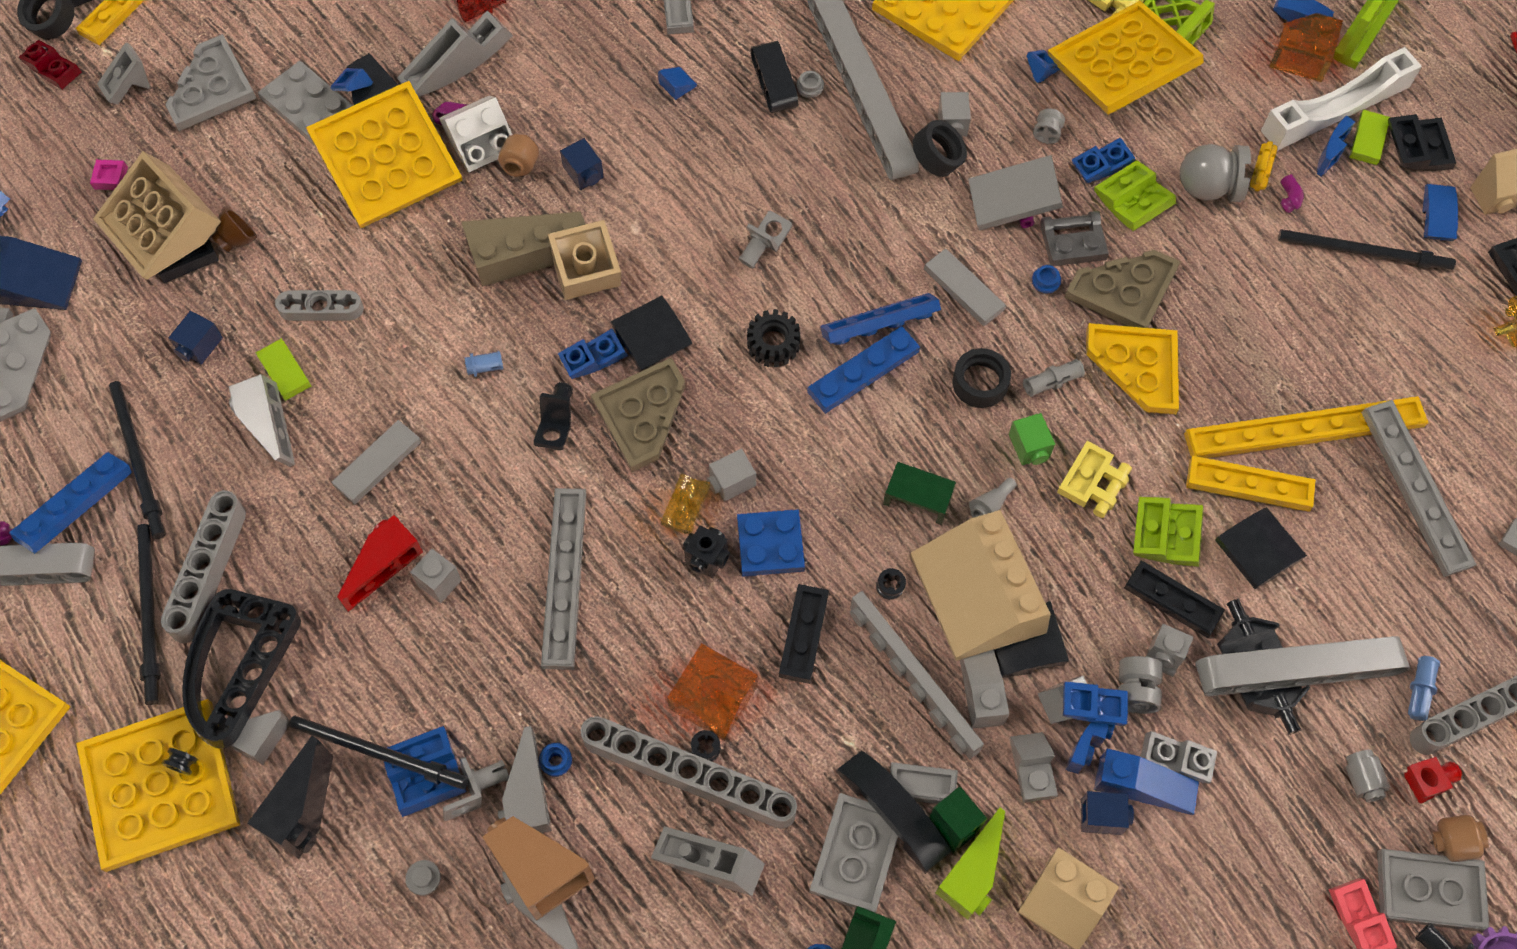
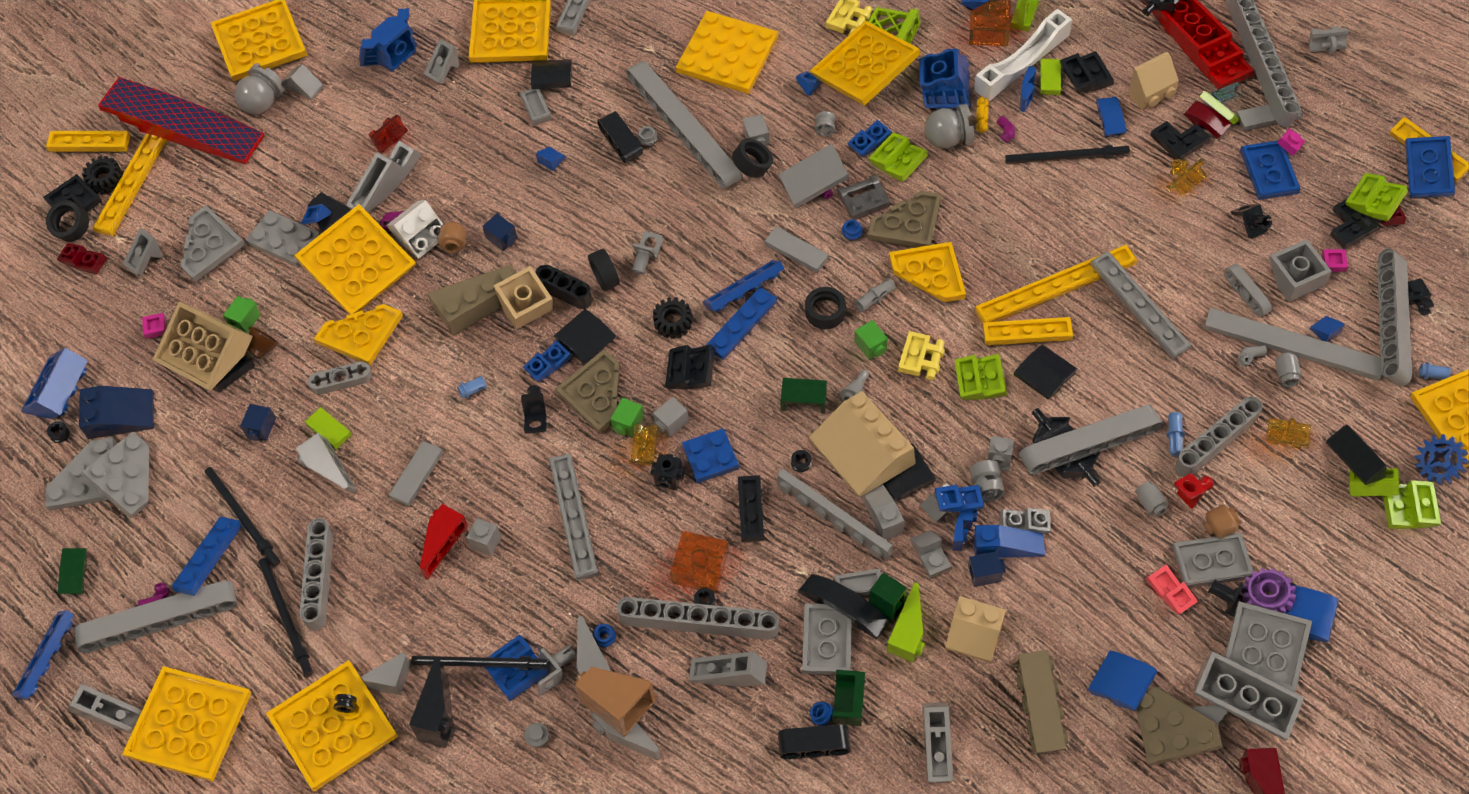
camera: 10 degrees left, 5 degrees down
(221, 187) = (242, 313): none -> bright green brick
(238, 686) = (377, 603): black beam -> none
(363, 253) = (360, 333): none -> yellow plate
(640, 247) = (571, 293): none -> black beam
(672, 459) = (626, 416): none -> bright green brick
(700, 249) = (603, 269): none -> black tyre
(777, 412) = (690, 367): none -> black slope
(1174, 599) = (996, 420): black tile -> none
(1225, 105) = (945, 79): none -> blue slope

